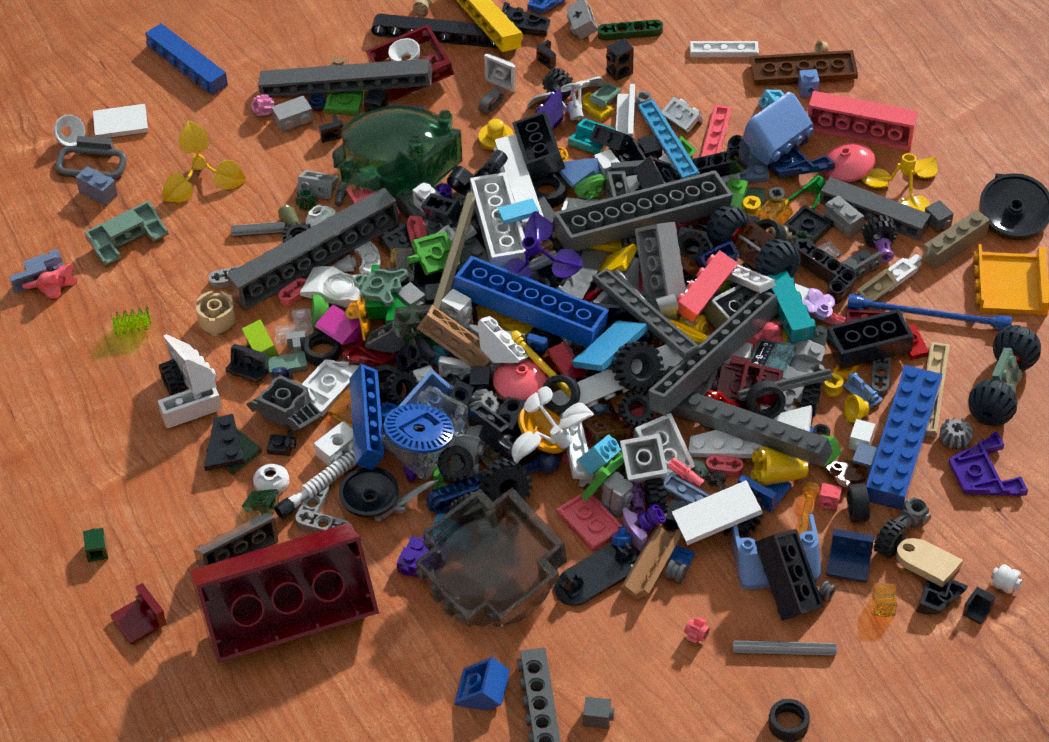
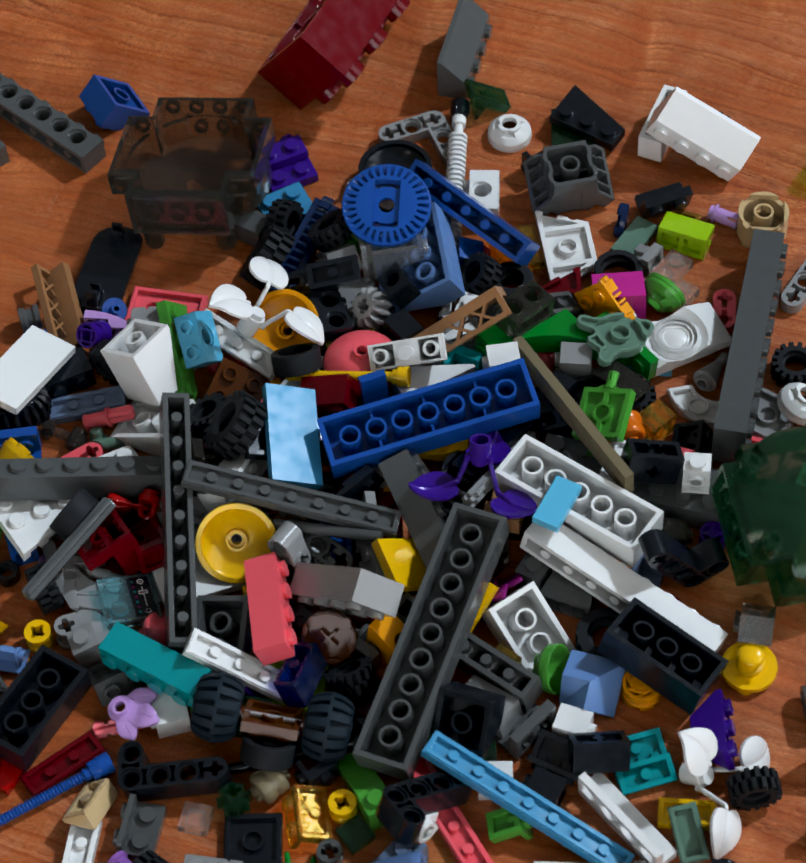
camera: 140 degrees right, 5 degrees up
(227, 338) = (721, 216): none -> lavender pin
(477, 136) = (755, 624): none -> clear smoke brick

